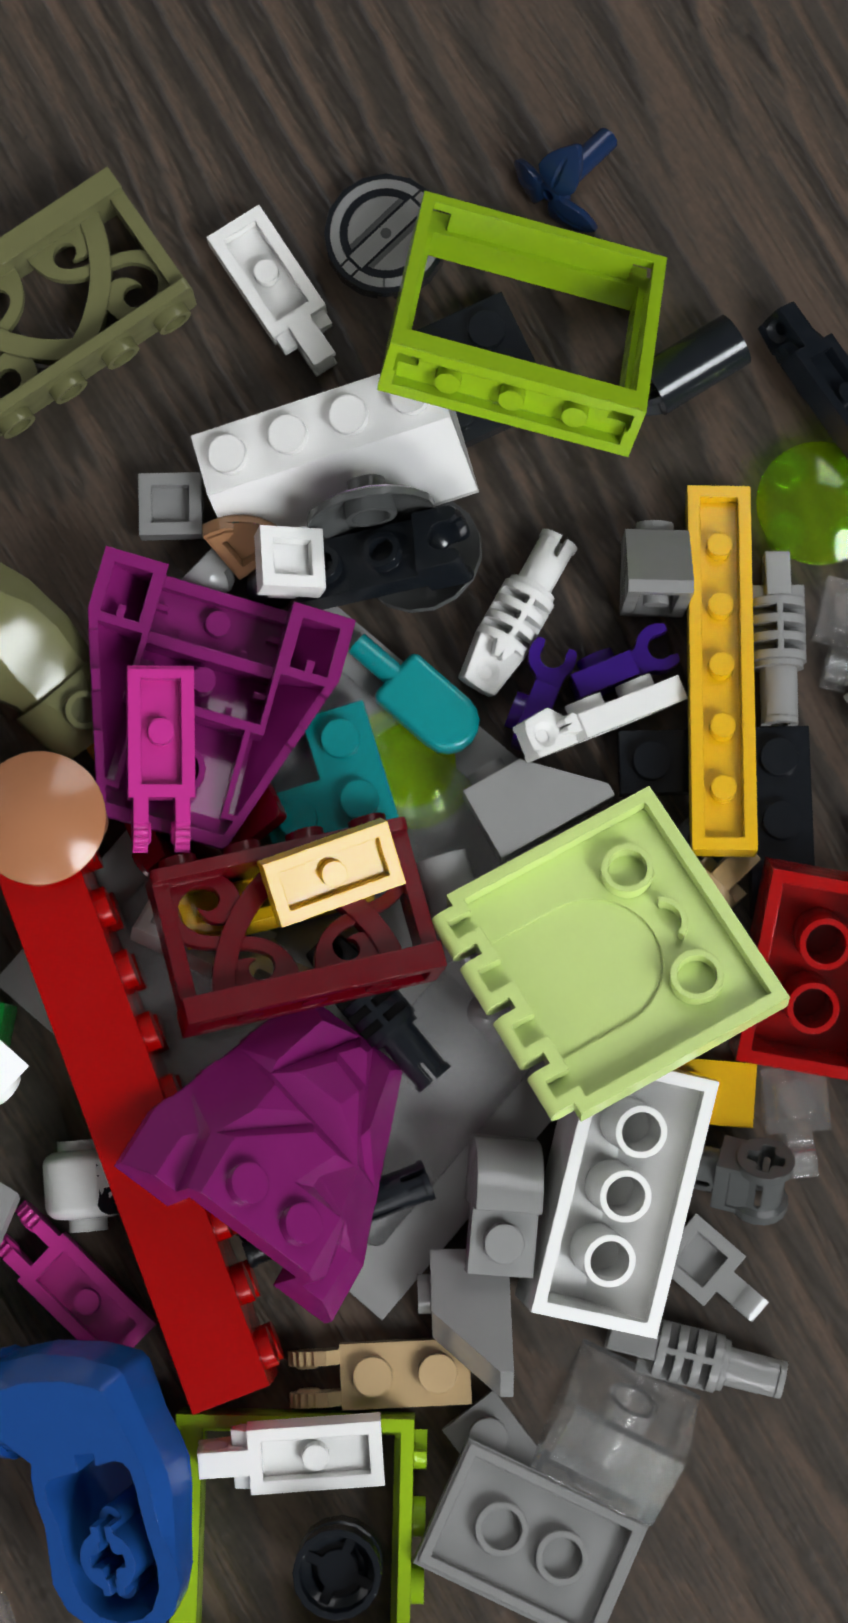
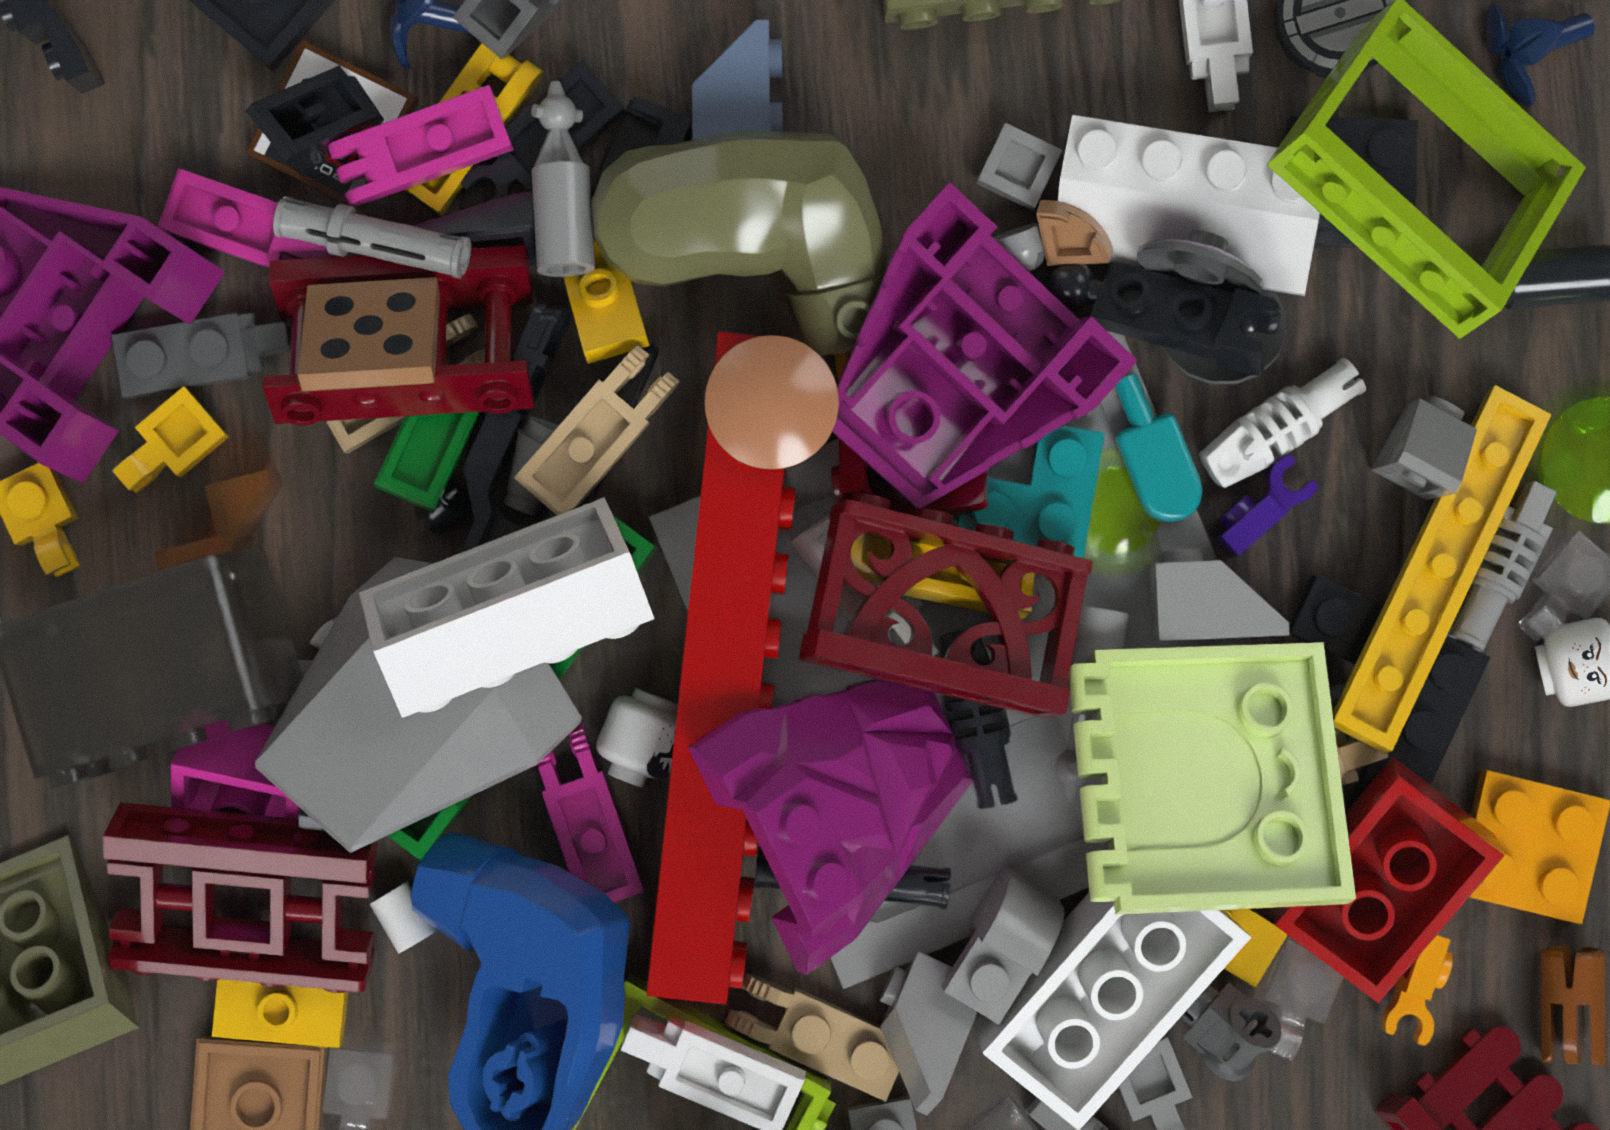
camera: 20 degrees right, 5 degrees up
(160, 749) = (908, 394): dark pink hinge -> none
(289, 562) = (1104, 277): white tile -> none
(331, 872) = (1005, 580): plate -> none
(591, 716) = (1303, 555): white hinge -> none
(604, 671) = (1333, 517): dark purple plate -> none

